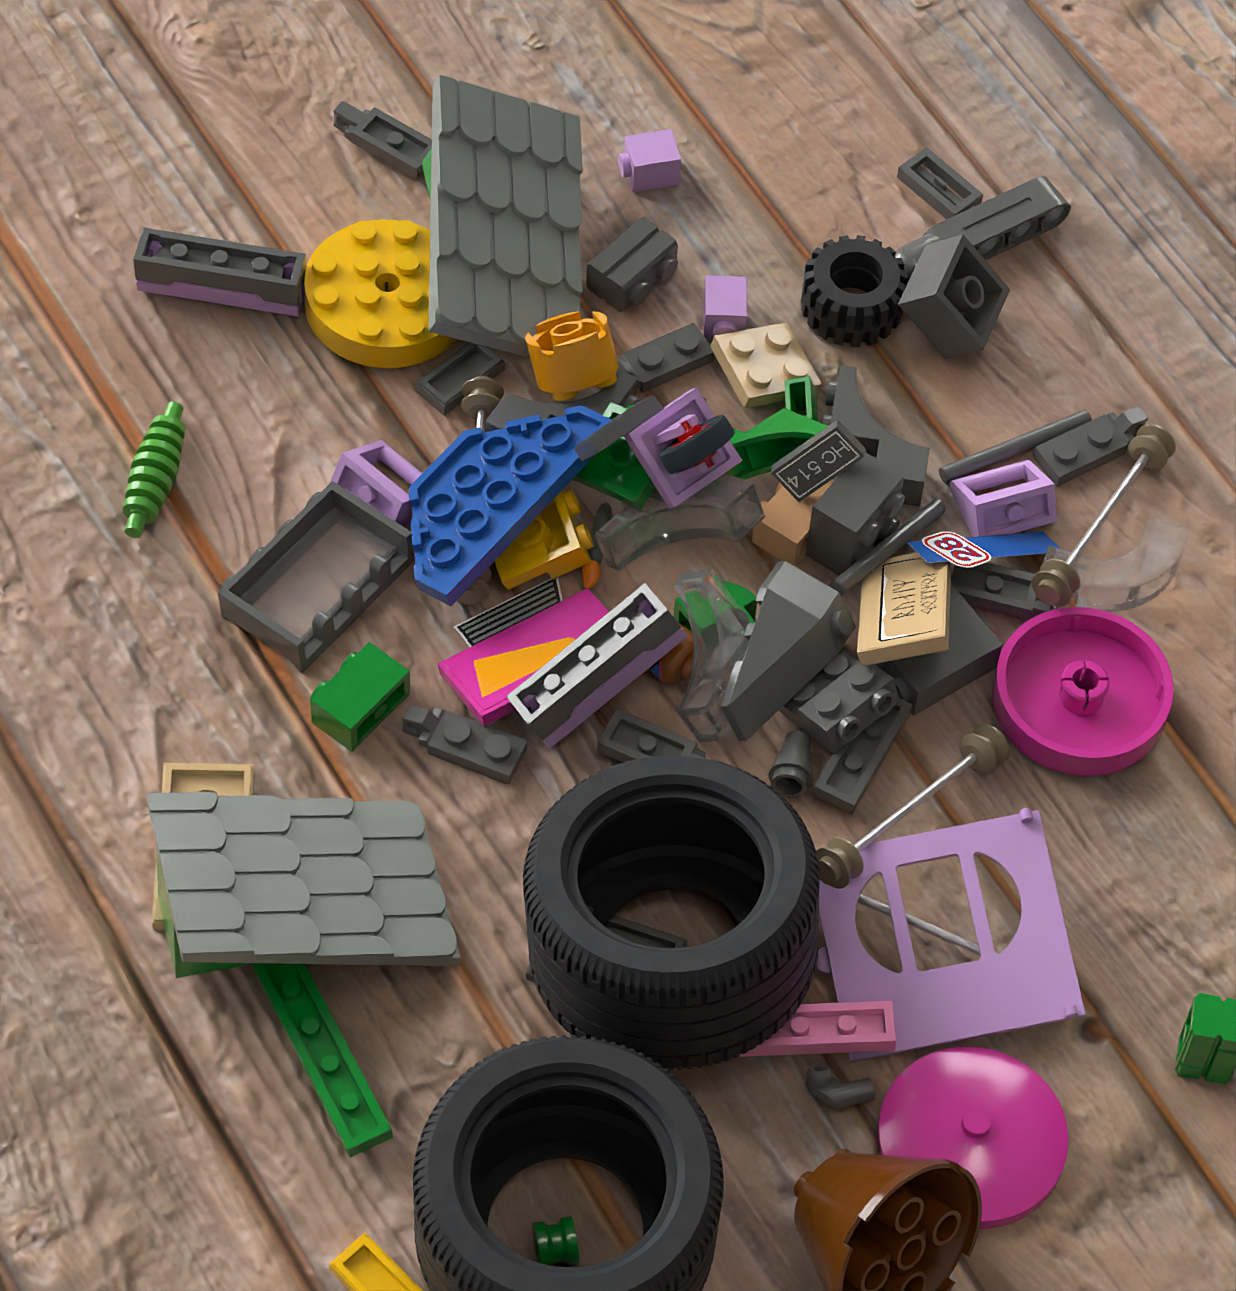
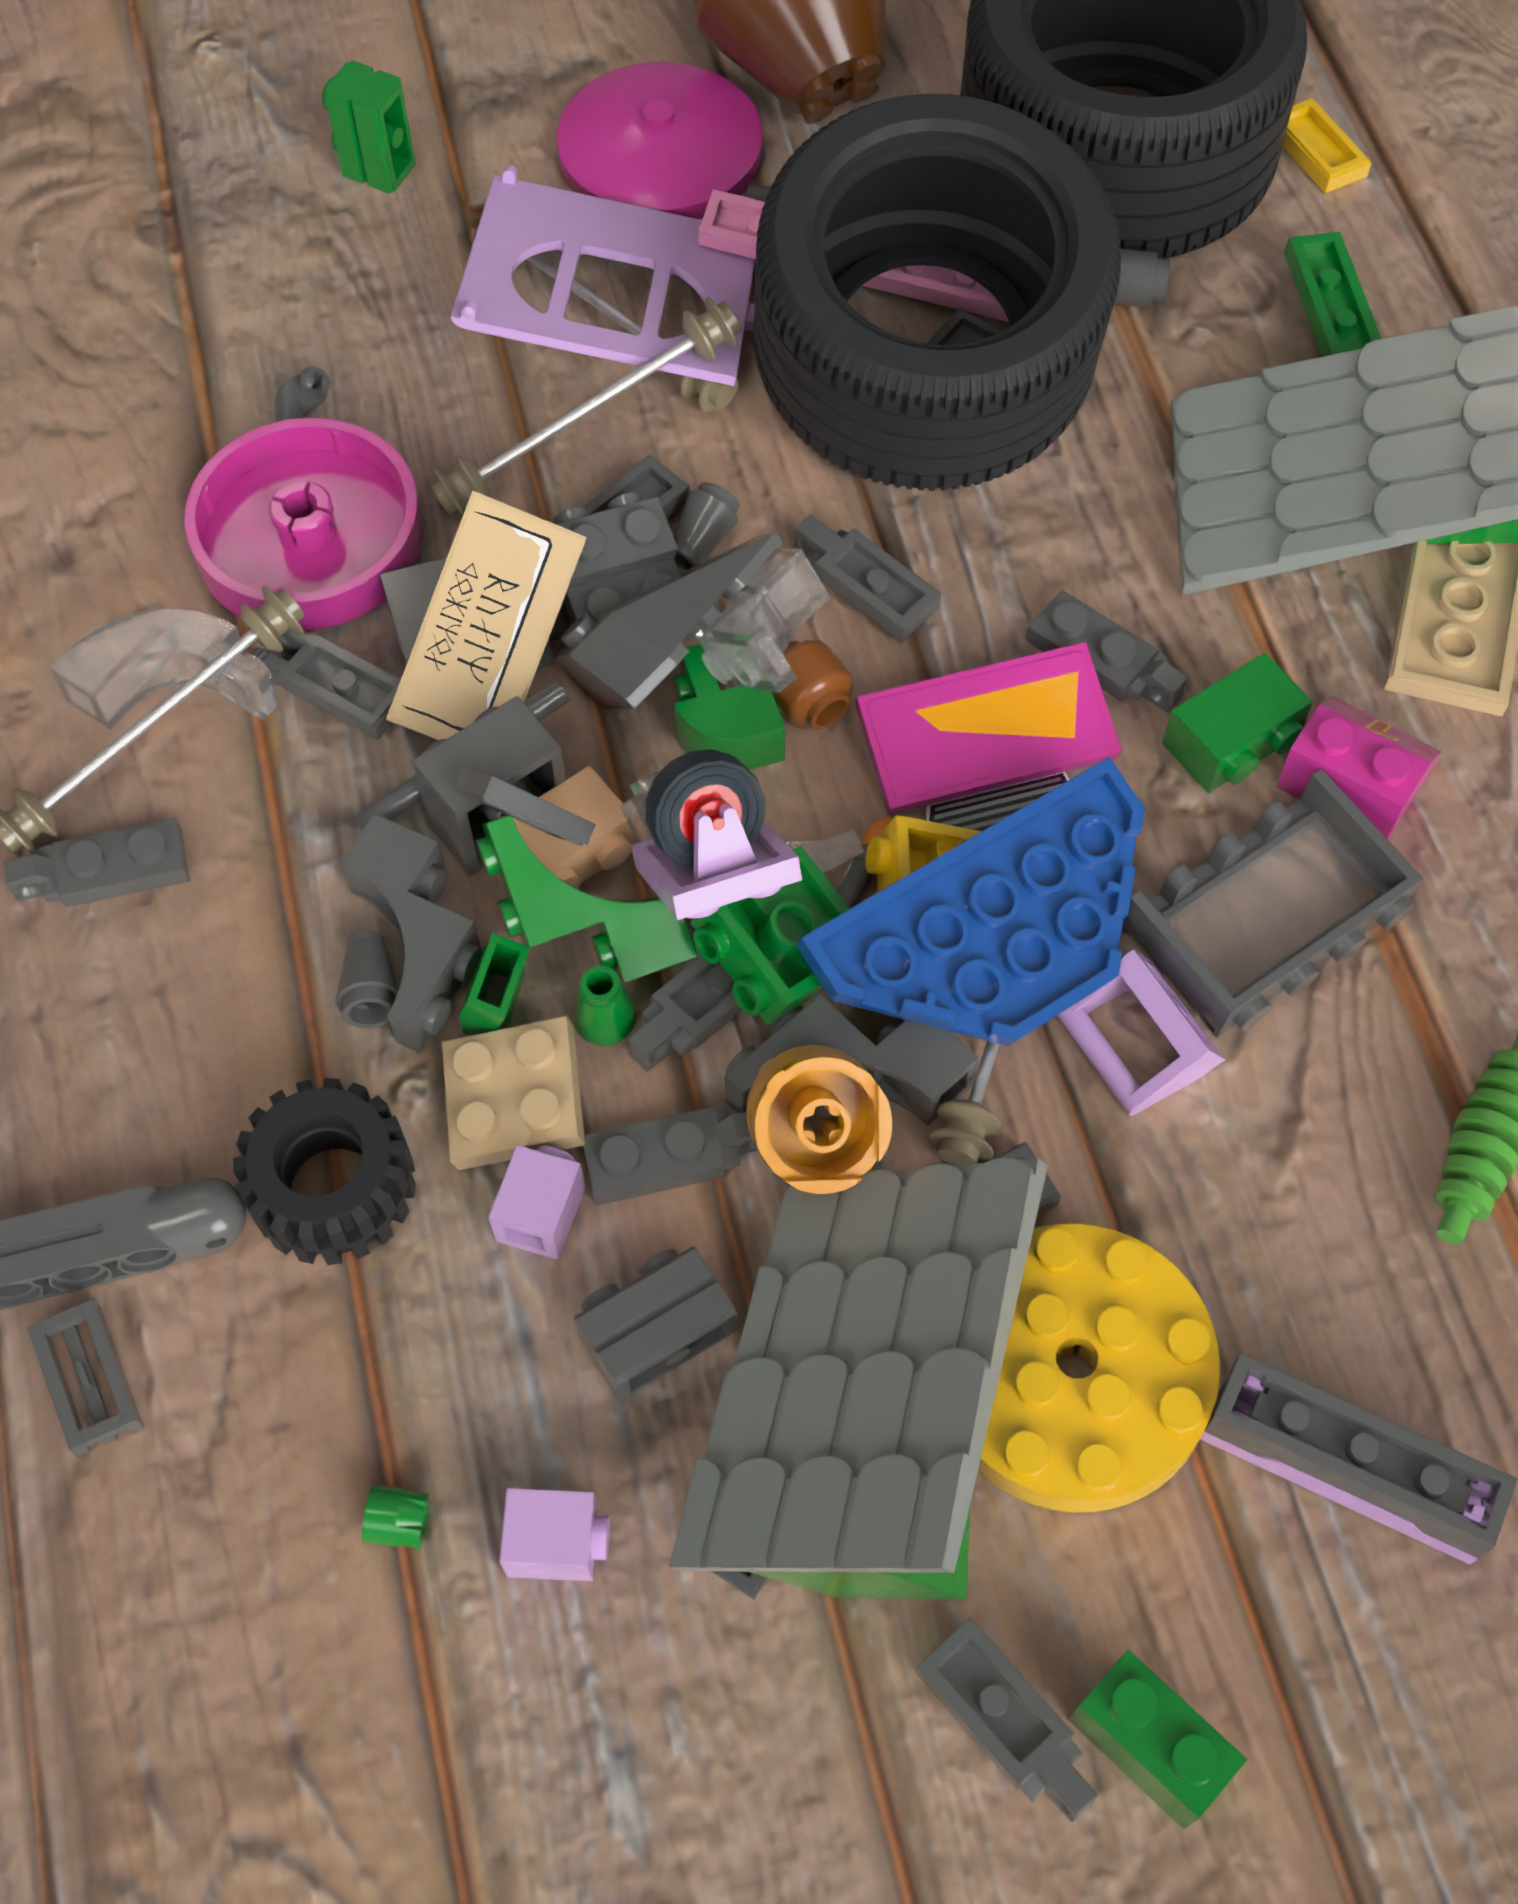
camera: 160 degrees left, 5 degrees up
(265, 690) = (1363, 757): none -> dark pink slope
(308, 139) = (1157, 1740): none -> green brick
(597, 665) = (917, 634): dark grey piece -> none
(617, 427) = (804, 897): dark grey tile -> none
(733, 407) = (603, 1007): none -> green cone
(737, 155) = (395, 1517): none -> green hose
(884, 404) = (366, 981): none -> dark grey cone
(954, 297) = (185, 1093): dark grey brick -> none
(978, 550) = (369, 706): blue sticker -> none
(1009, 508) = (217, 779): lavender tile -> none
(1012, 447) = (206, 889): dark grey bar -> none
(1149, 801) = (301, 394): none -> dark grey arm

